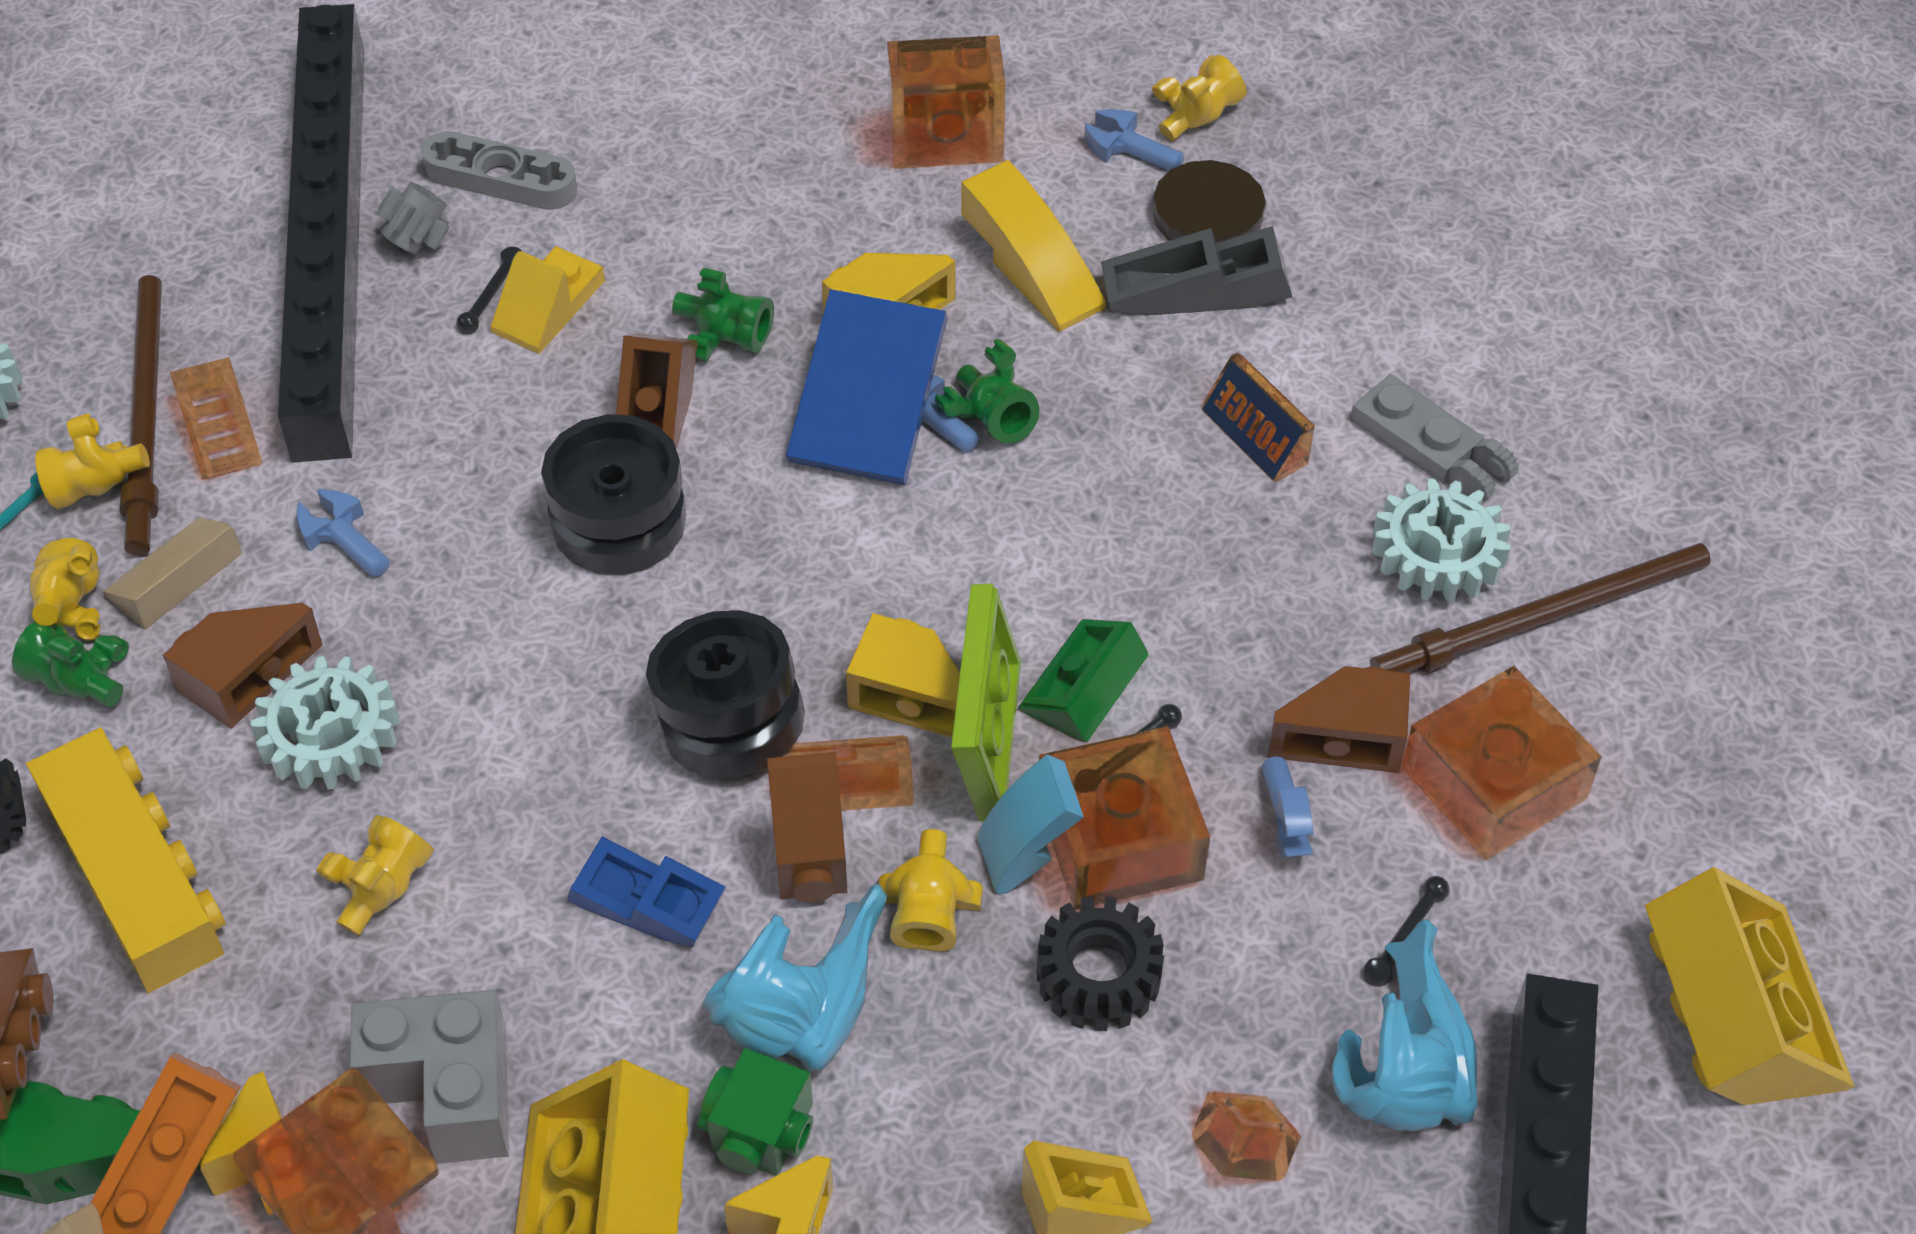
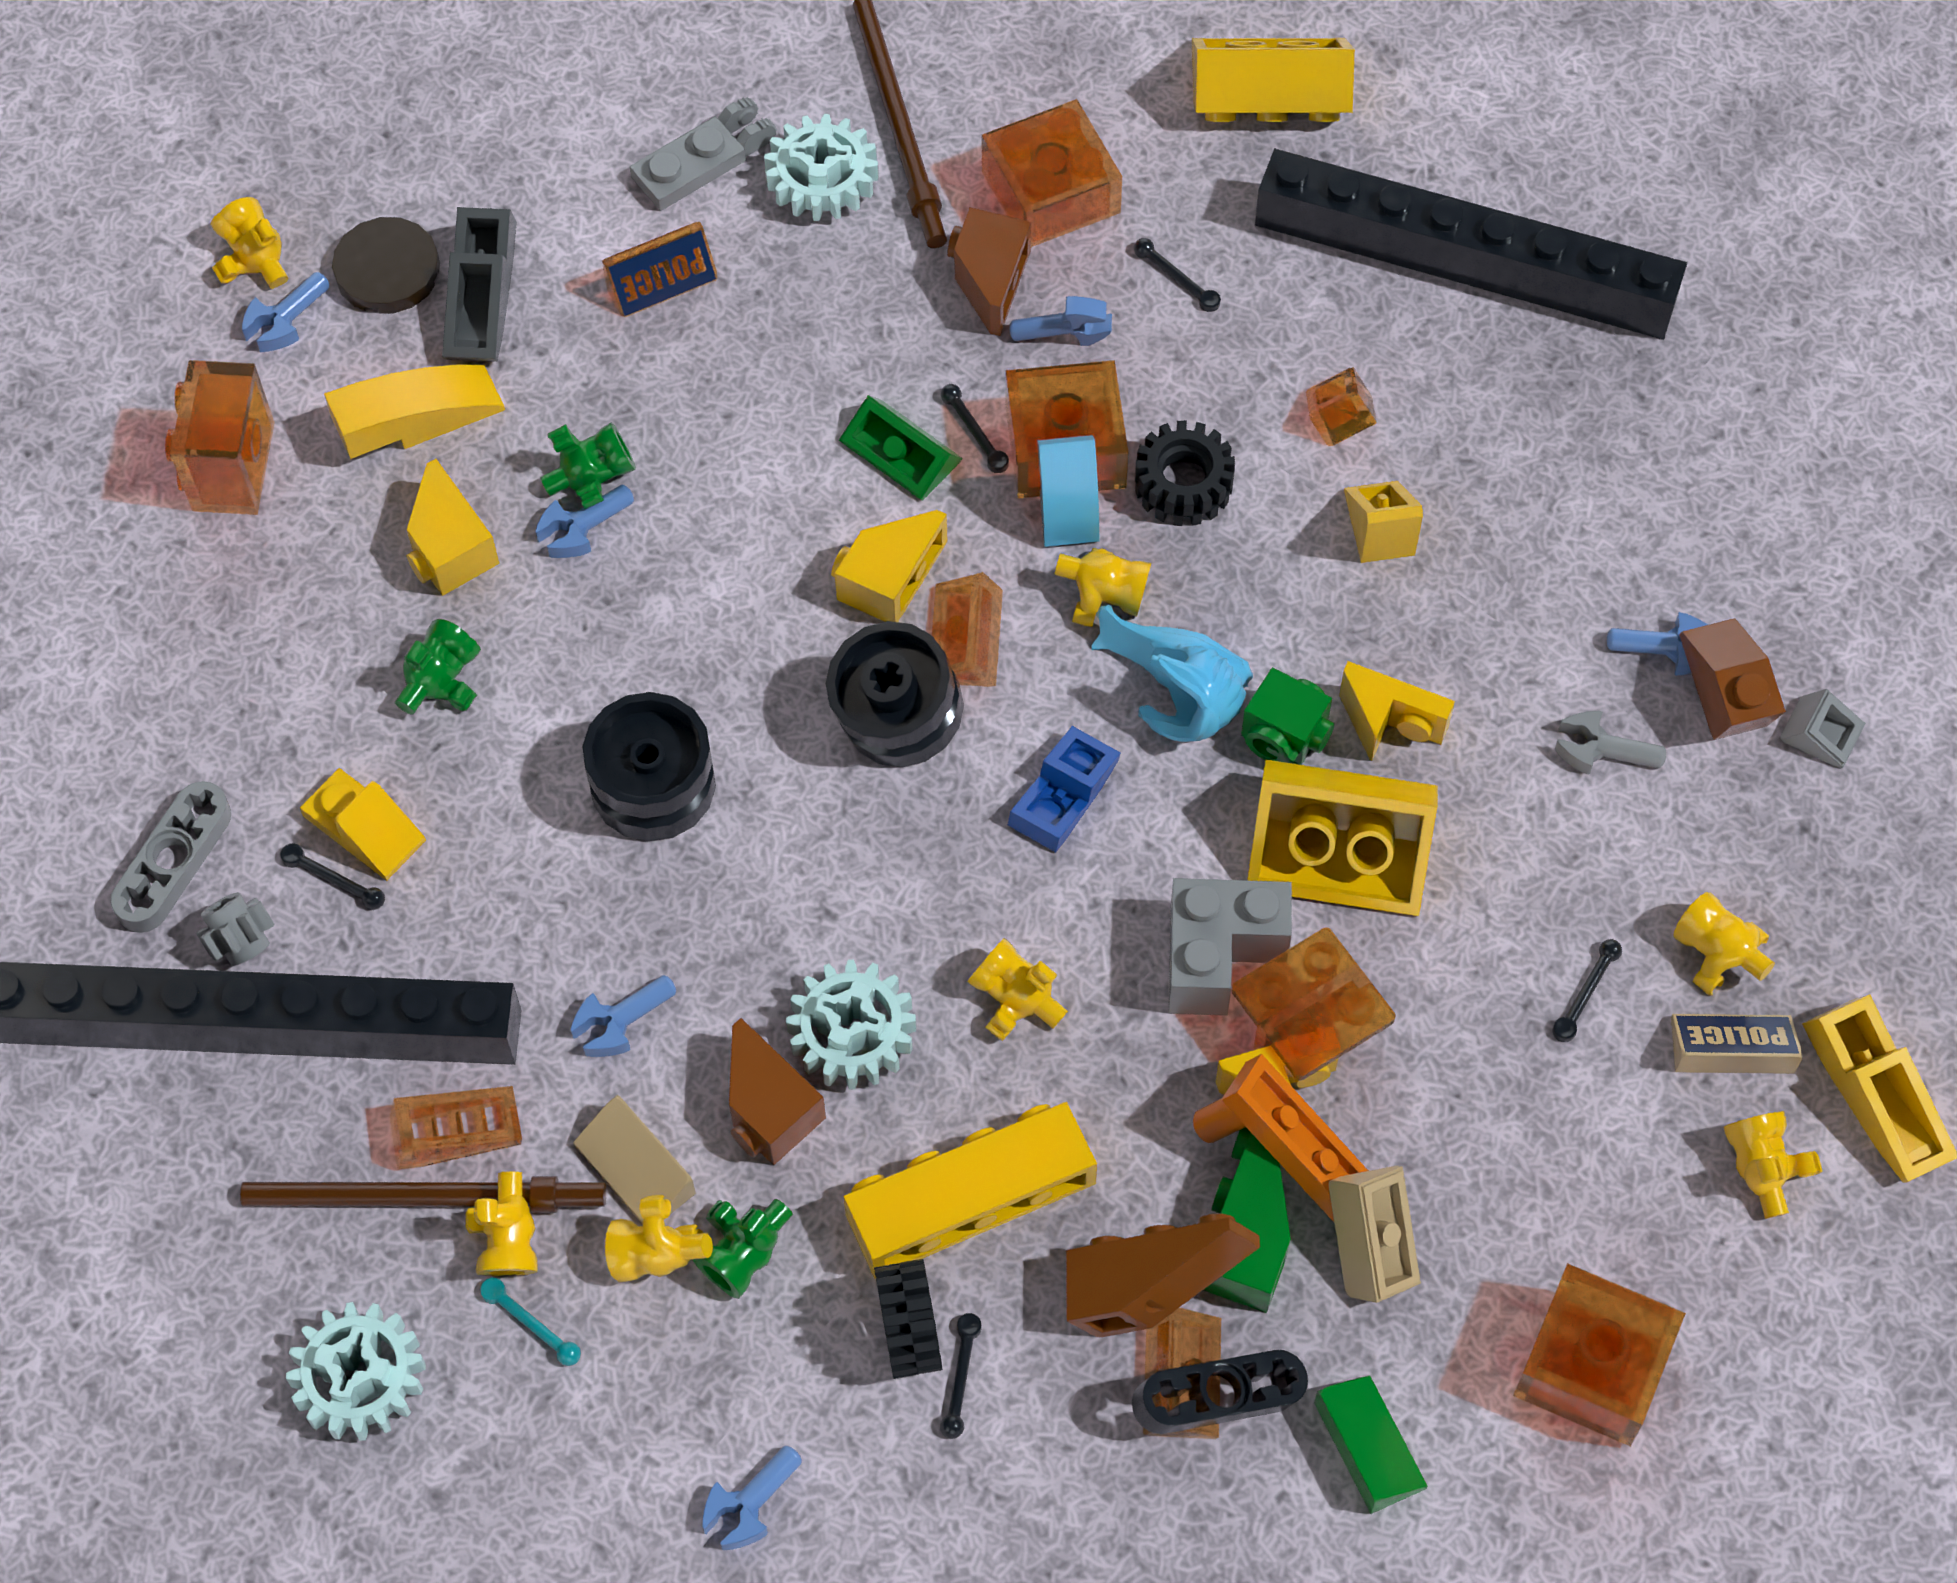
camera: 80 degrees left, 10 degrees up
(657, 380) = (520, 731): dark orange slope -> none
(807, 826) = (1045, 649): dark orange slope -> none
(867, 387) = (564, 553): blue tile -> none
(986, 700) = (969, 503): lime tile -> none
(1424, 1049) = (1306, 279): medium azure hair -> none

